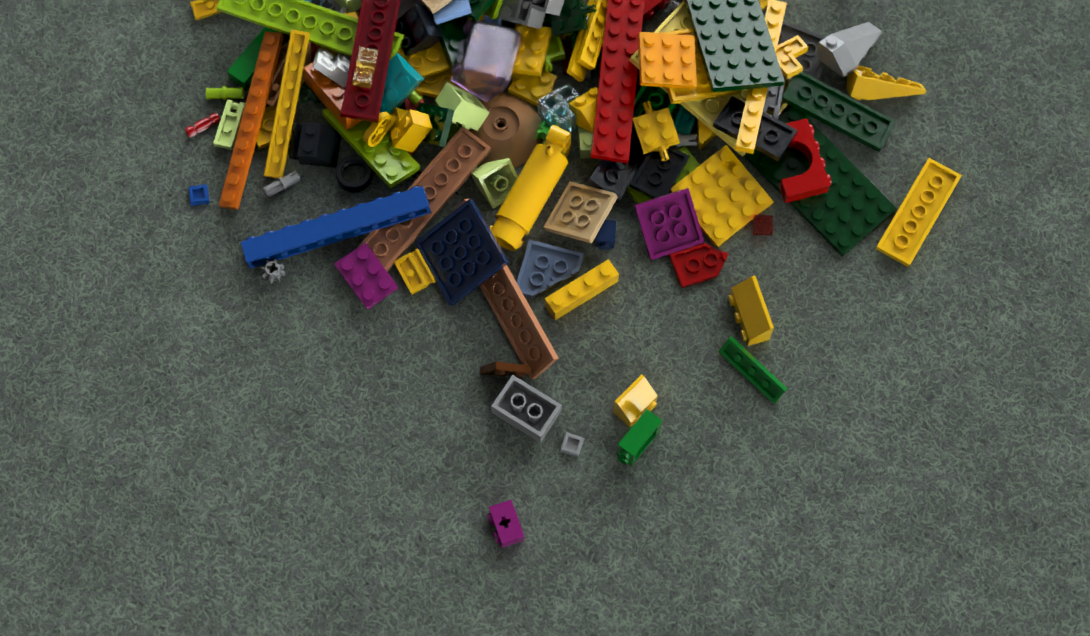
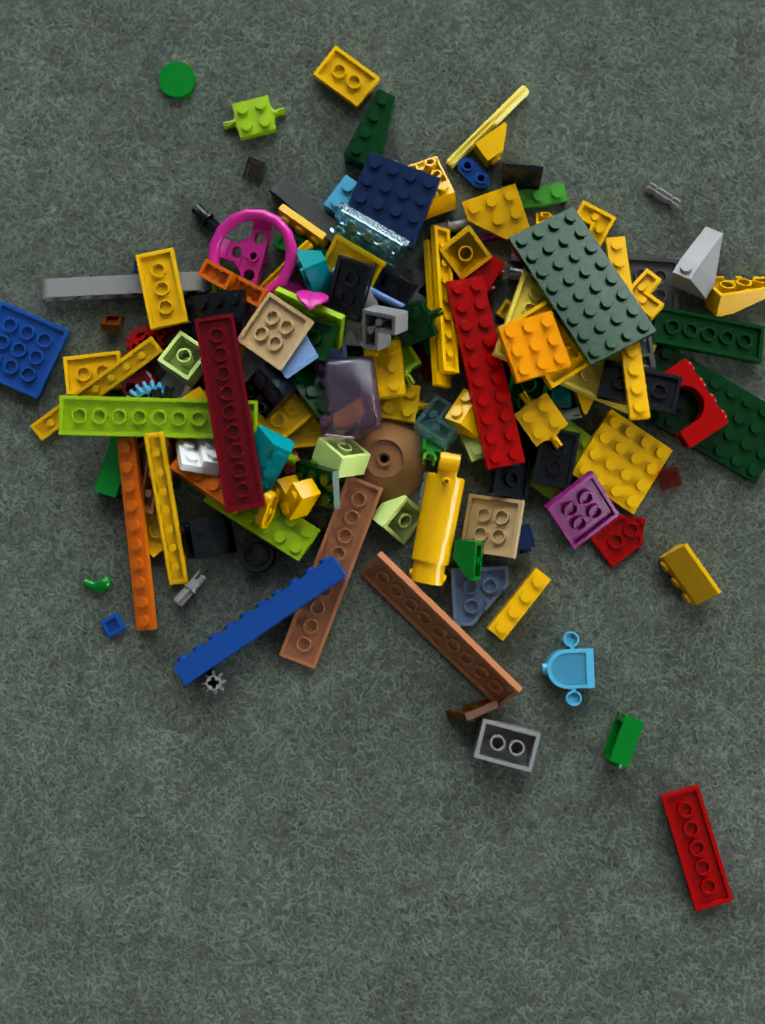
camera: 15 degrees left, 15 degrees up
(198, 157) = (98, 586): none -> green arm
(202, 125) = (89, 551): red axle -> none
(225, 93) = (100, 511): lime pin -> none
(229, 125) = (116, 543): yellowish green plate -> none
(365, 67) = (233, 455): clear yellow slope -> none
(366, 276) = (306, 659): magenta plate -> none
(414, 271) = (351, 637): yellow plate -> none
(461, 252) = (392, 608): dark blue plate -> none
(505, 512) = (531, 870): magenta brick -> none
(549, 230) = (468, 556): none -> green slope
(572, 444) = (558, 760): light grey tile -> none
(611, 362) = (570, 668): none -> medium azure piece
(635, 401) = (606, 702): yellow slope -> none
(678, 565) = (696, 847): none -> red plate
(752, 370) = (706, 631): green plate -> none

